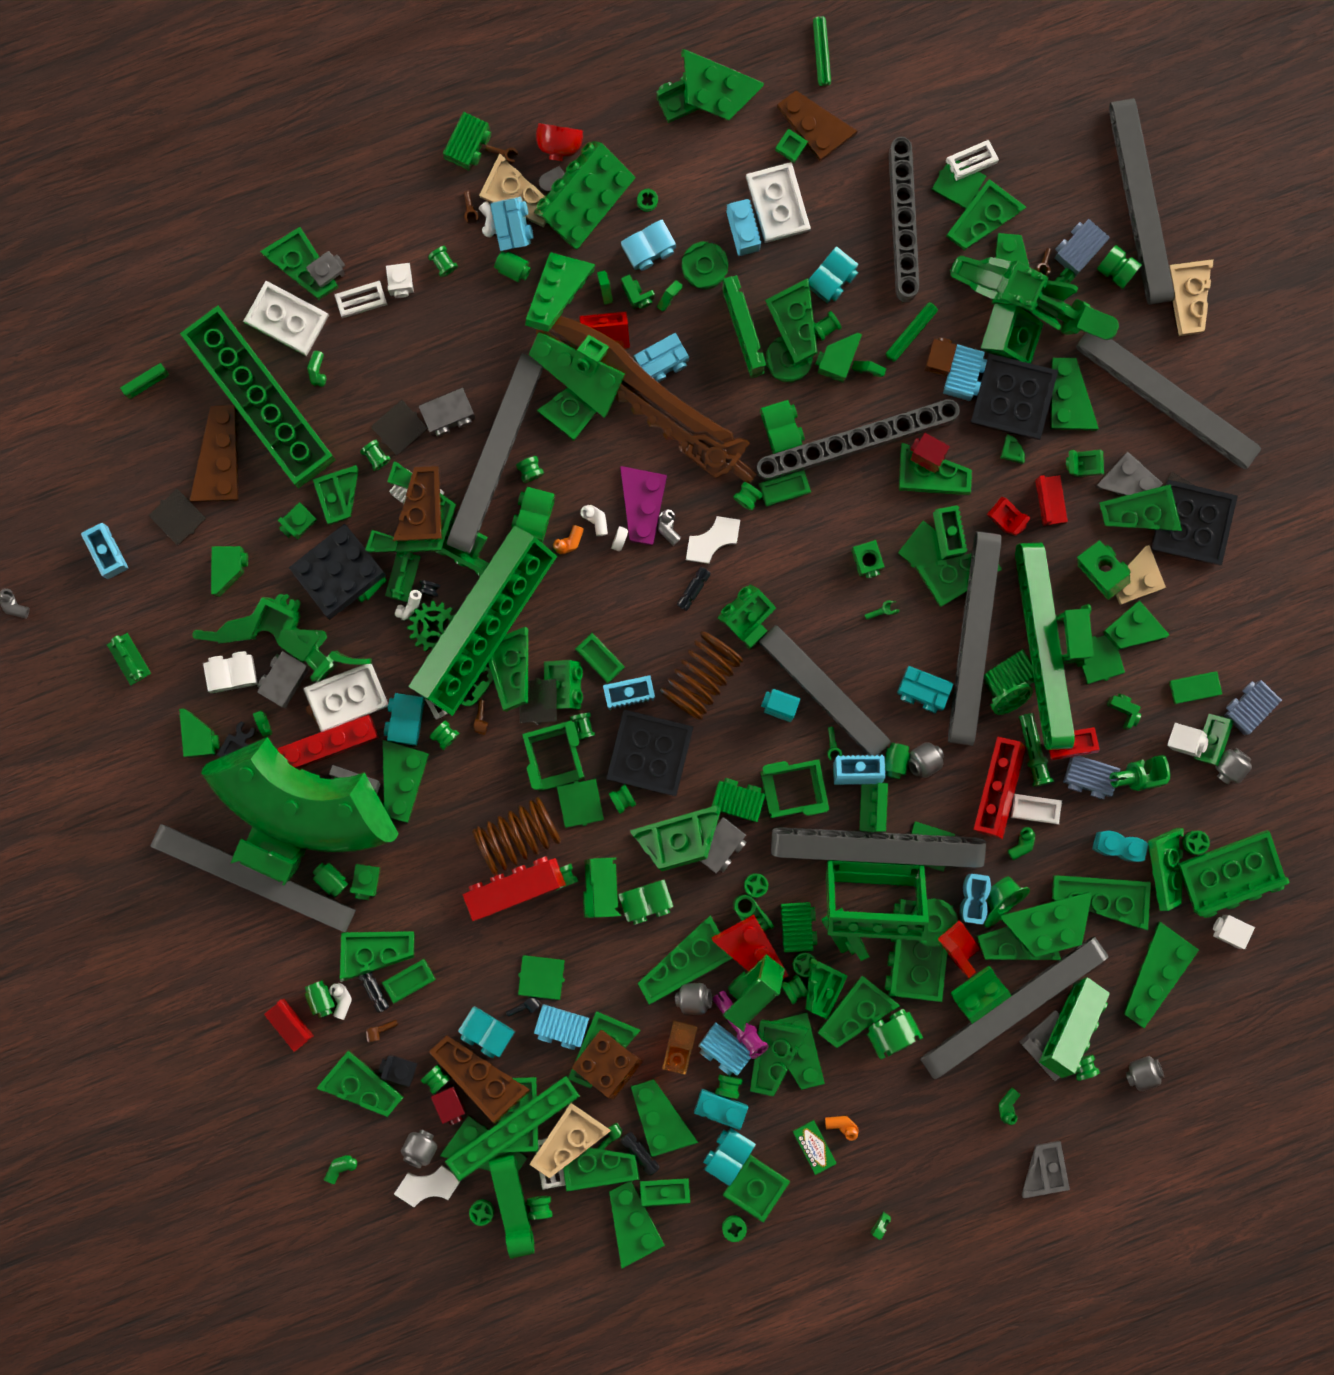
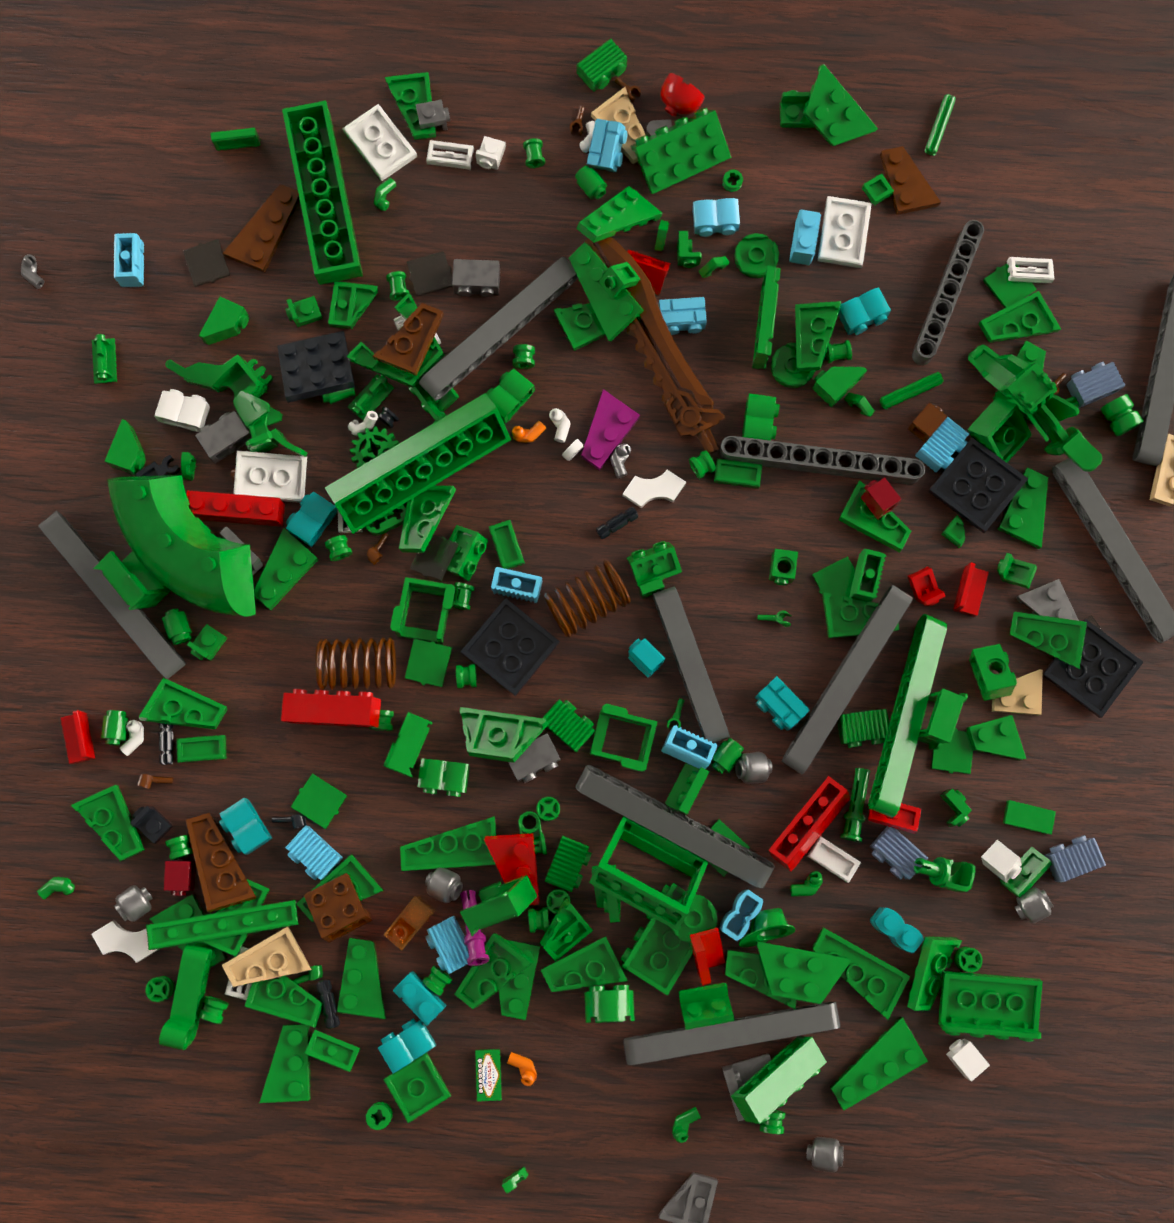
camera: 30 degrees right, 5 degrees down
(1012, 698) = (855, 748): green wheel -> none

